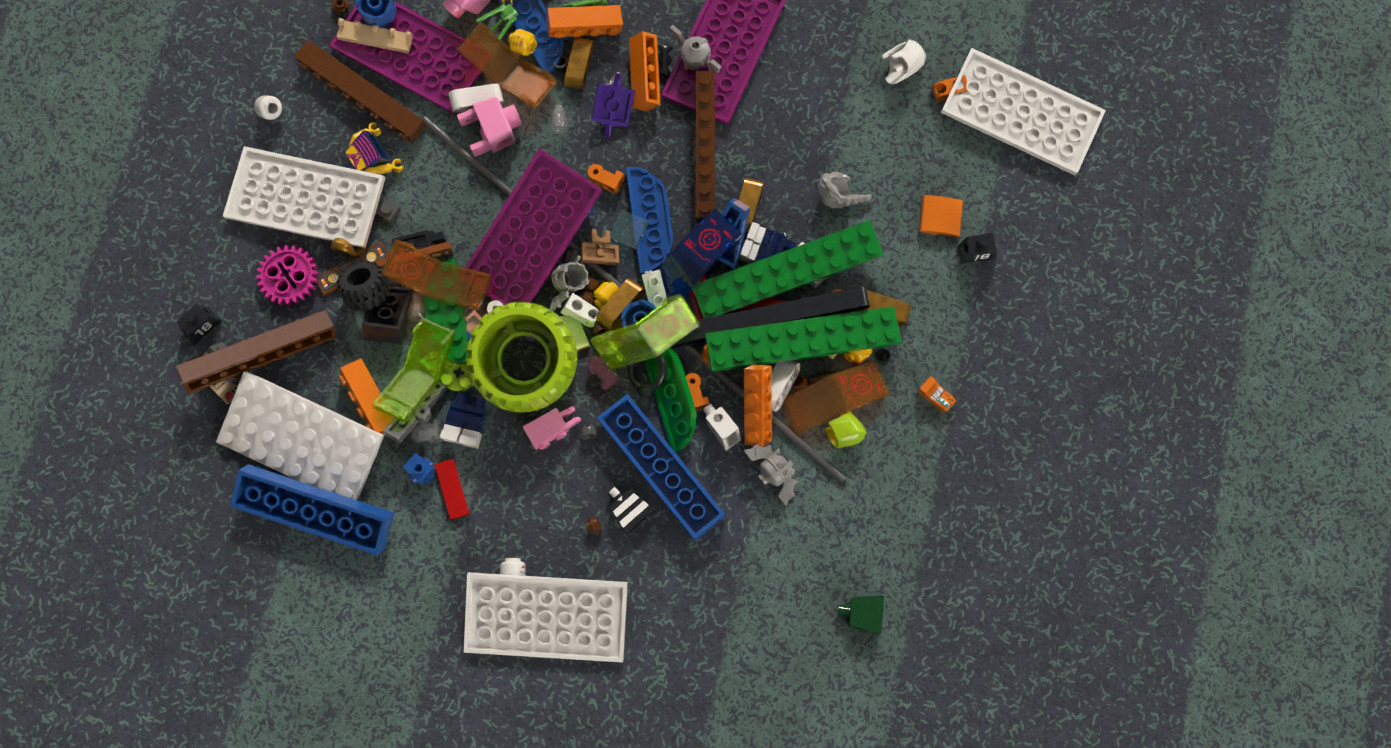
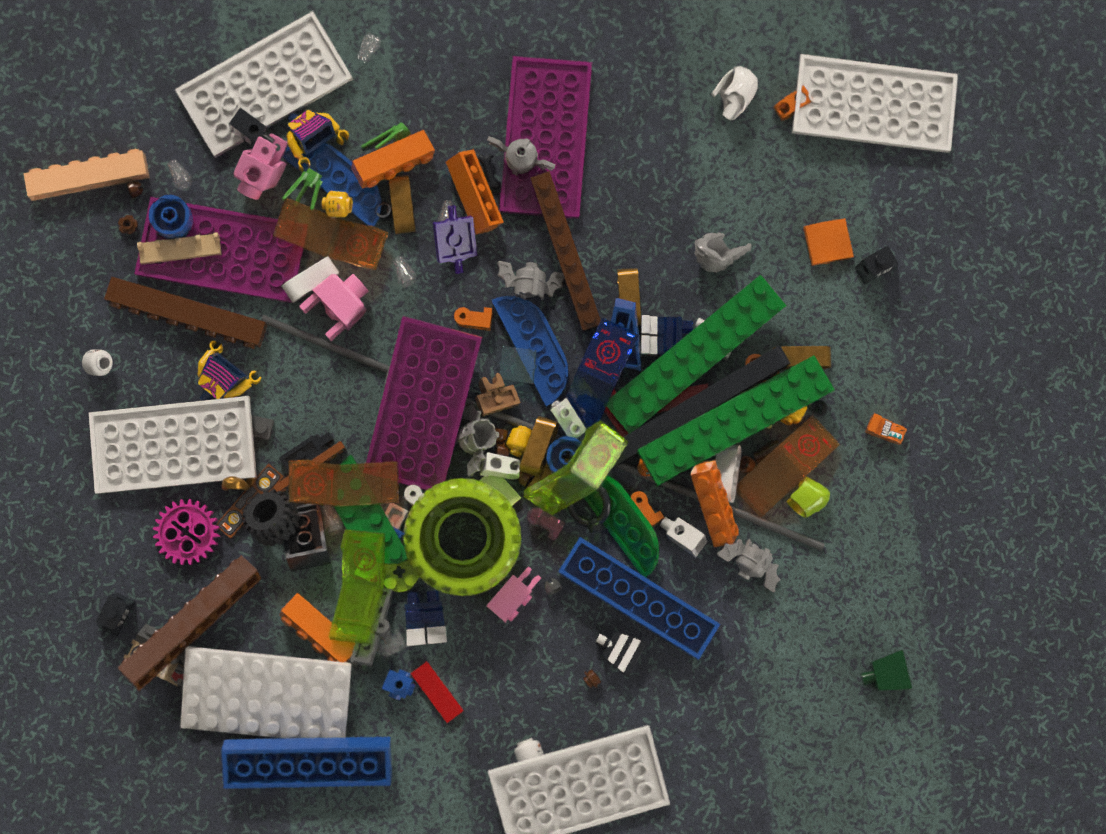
camera: 20 degrees left, 5 degrees up
(665, 160) = (529, 280): none -> light grey helmet

